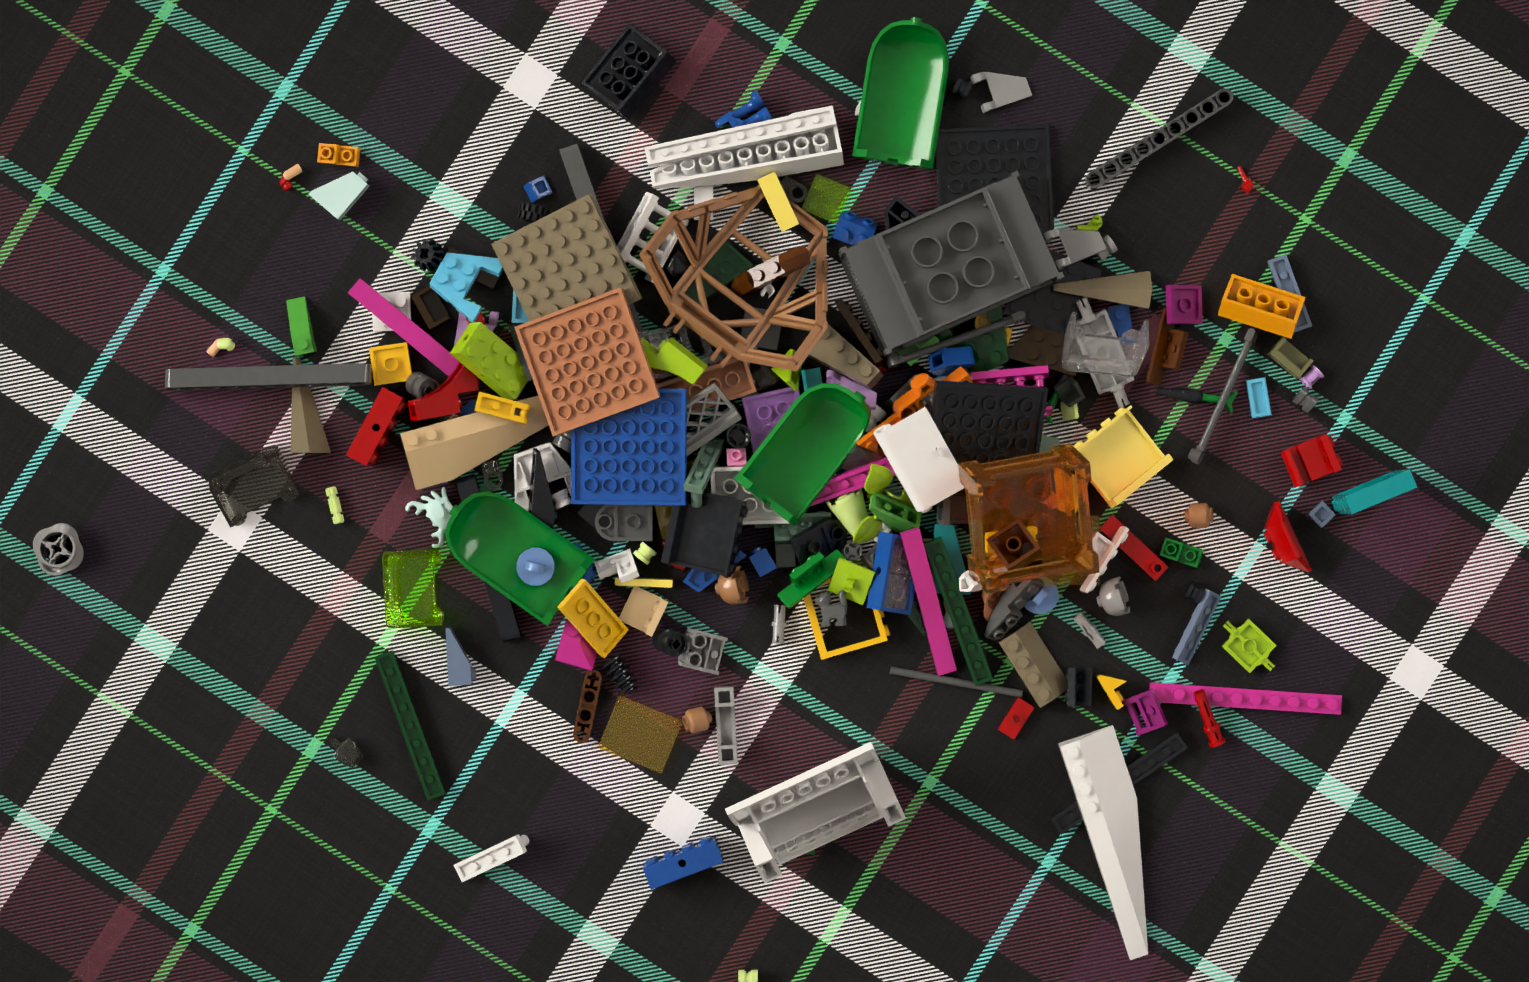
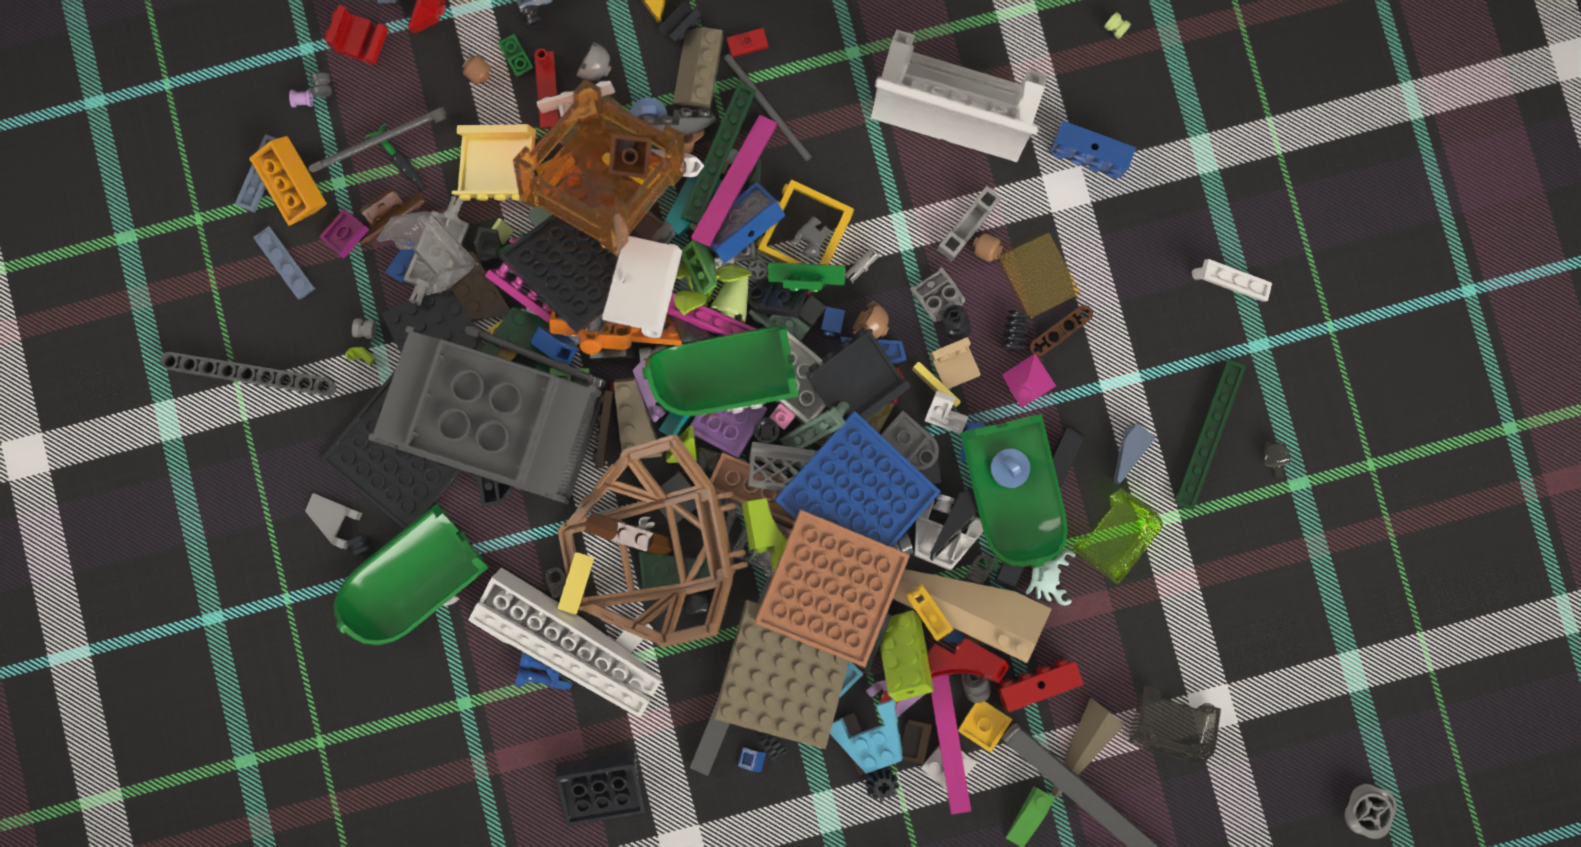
camera: 145 degrees left, 5 degrees down
(334, 505) = (1122, 653): yellowish green axle -> none
(593, 618) = (1000, 390): yellow plate -> none
(640, 221) = (694, 662): white fence -> none
(644, 553) = (916, 406): yellowish green wheel -> none
(826, 198) = (538, 553): clear neon green plate -> none
(852, 579) = (777, 245): lime piece -> none
(853, 228) = (538, 511): blue bracket -> none
(1077, 244) = (379, 347): light grey flag -> none
(1089, 630) = (634, 58): light grey pin -> none
(1125, 289) = (376, 283): dark tan wedge -> none
(1210, 243) = (284, 263): none -> sand blue plate
(1248, 185) = (214, 282): red hand -> none
(1258, 397) = (354, 118): medium azure tile -> none
(1290, 358) = (304, 125): olive panel -> none

